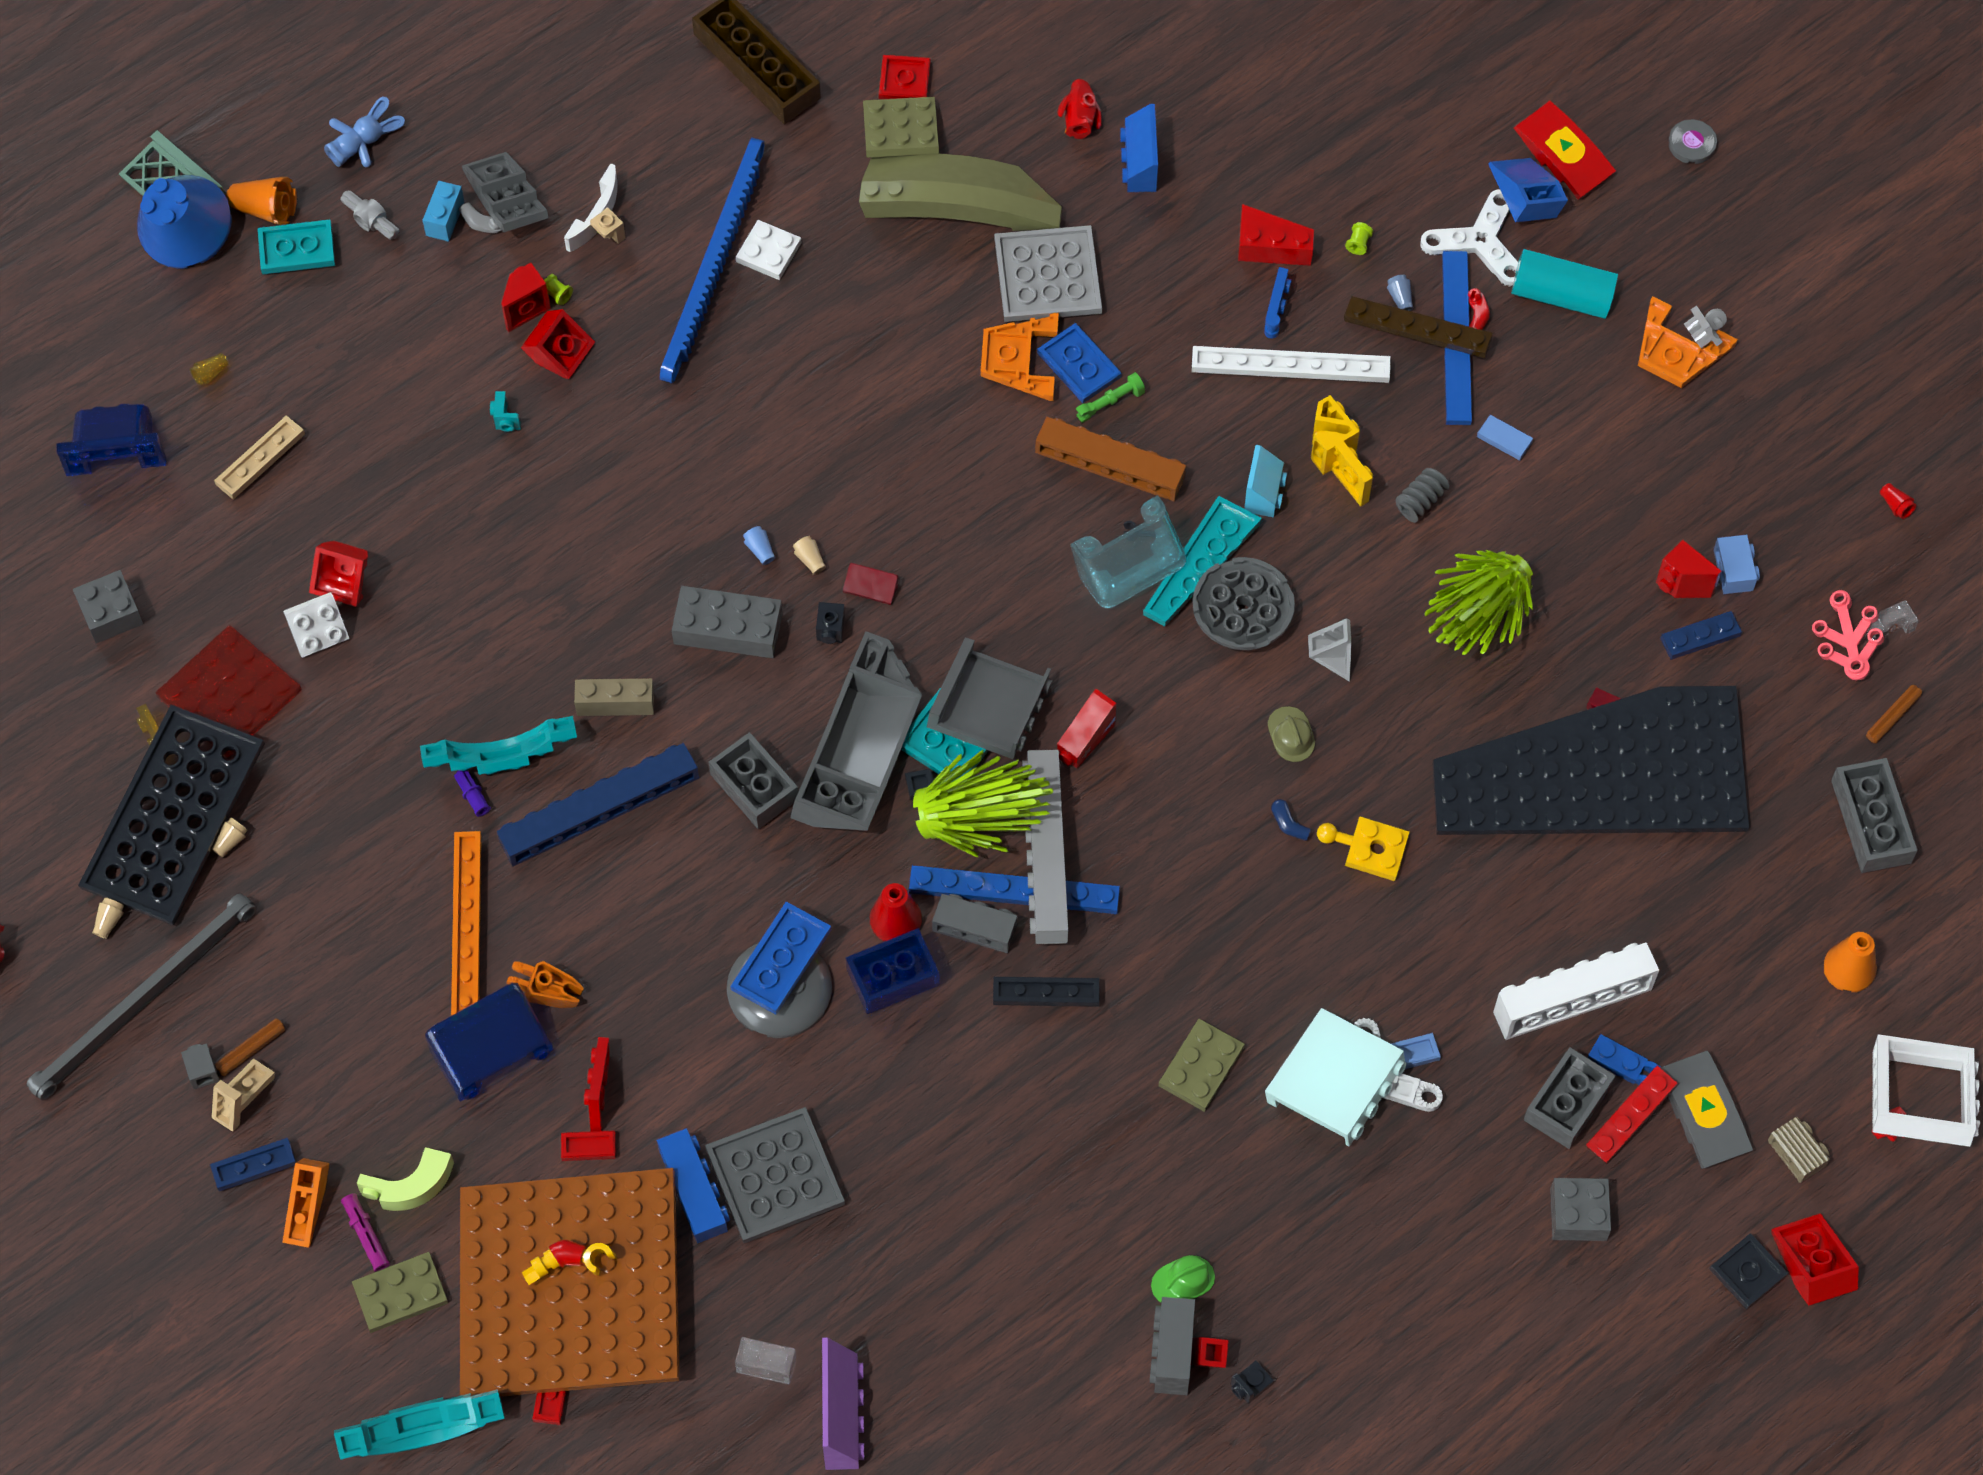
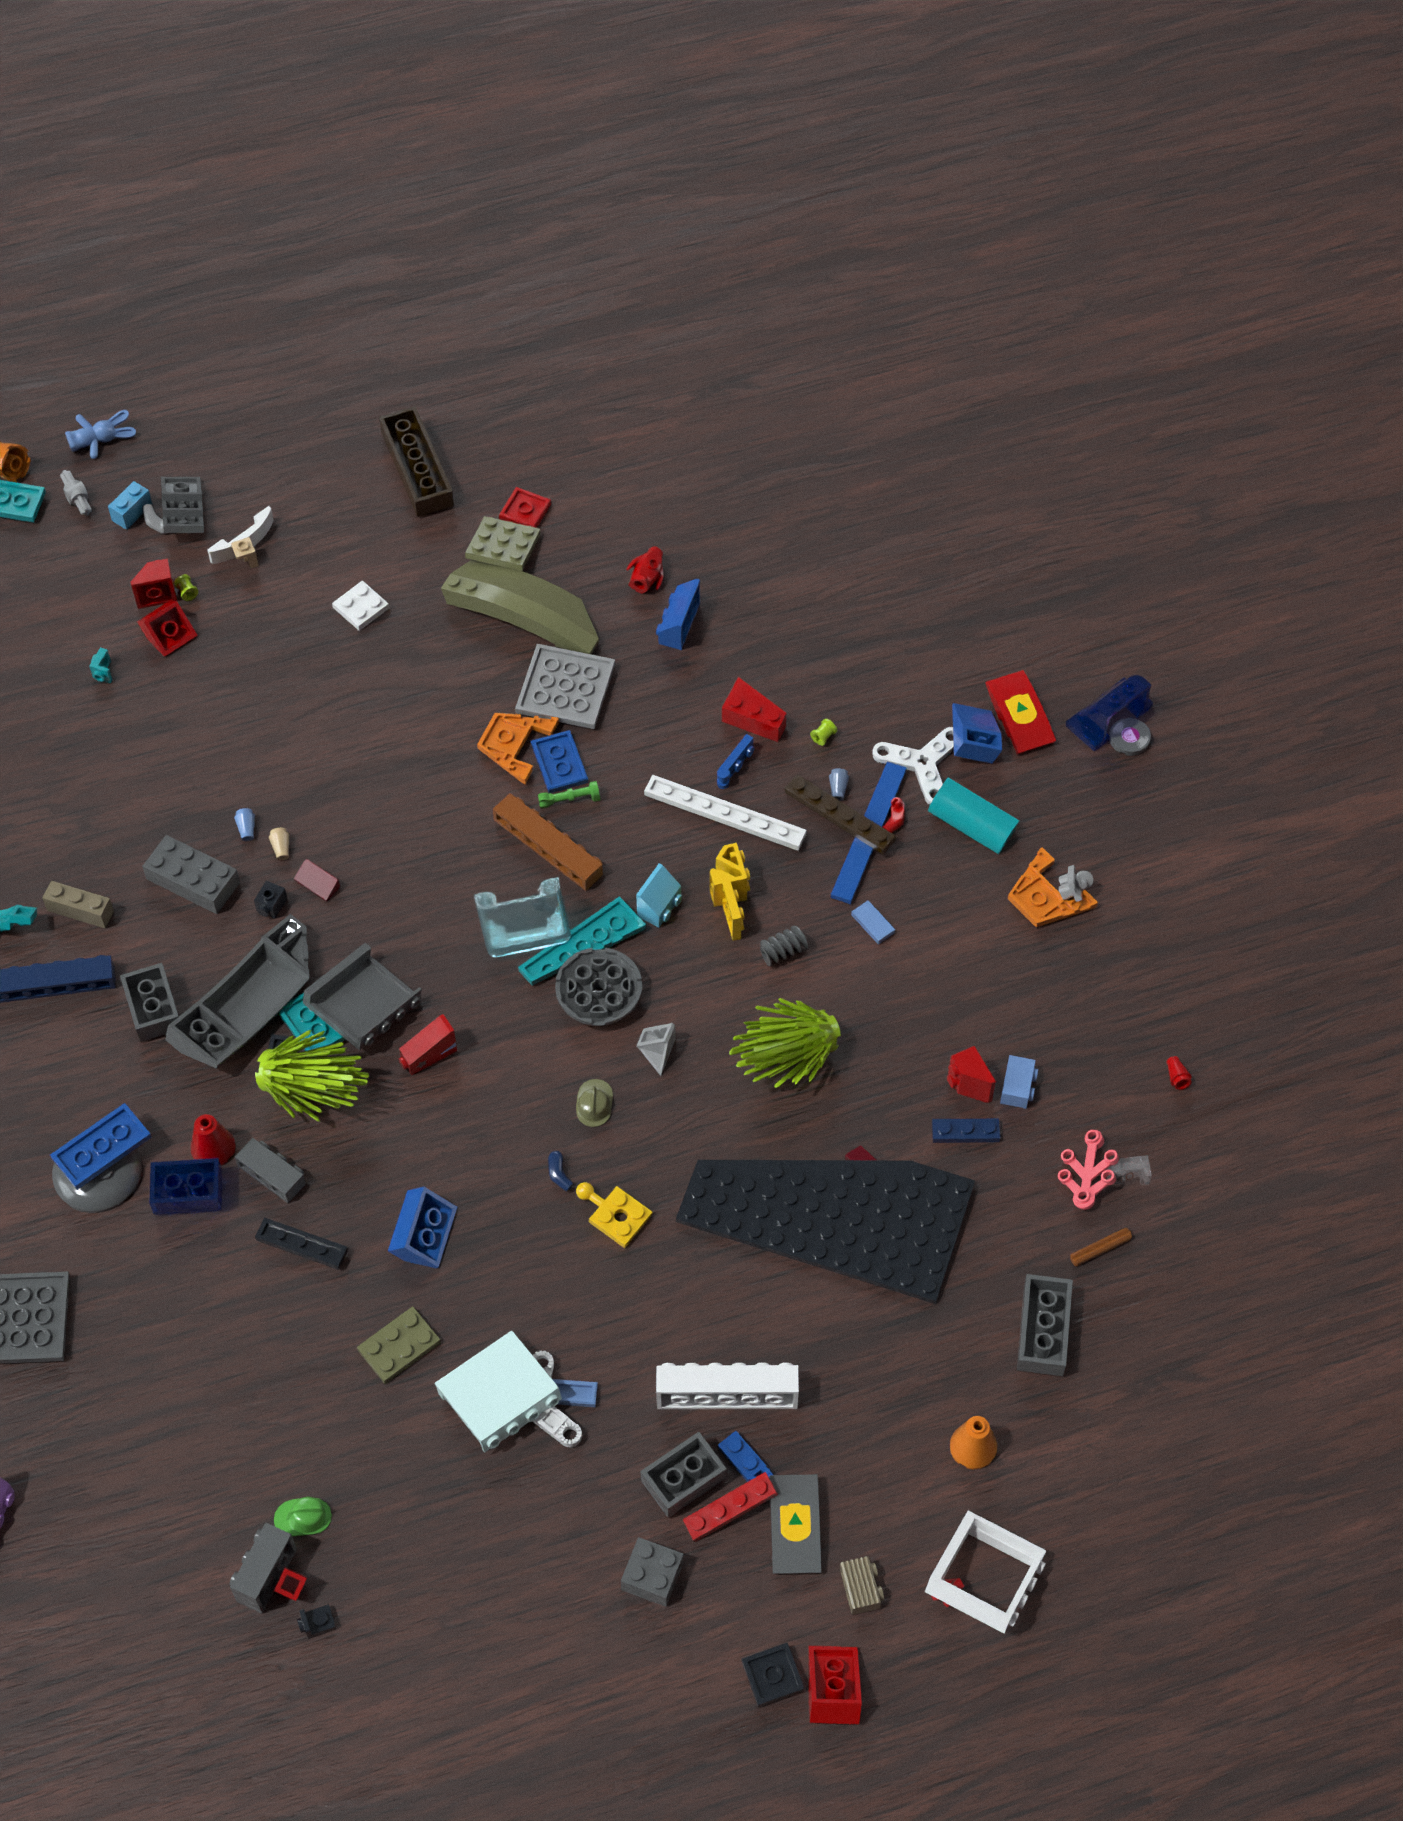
camera: 20 degrees right, 5 degrees down
(712, 262) = (312, 601): blue gear -> none
(1007, 888) = (316, 1154): blue plate -> none
(1047, 855) = (351, 1130): light grey brick -> none
(1170, 930) = (422, 1228): none -> blue slope
(1653, 126) = (1093, 720): none -> clear blue windscreen

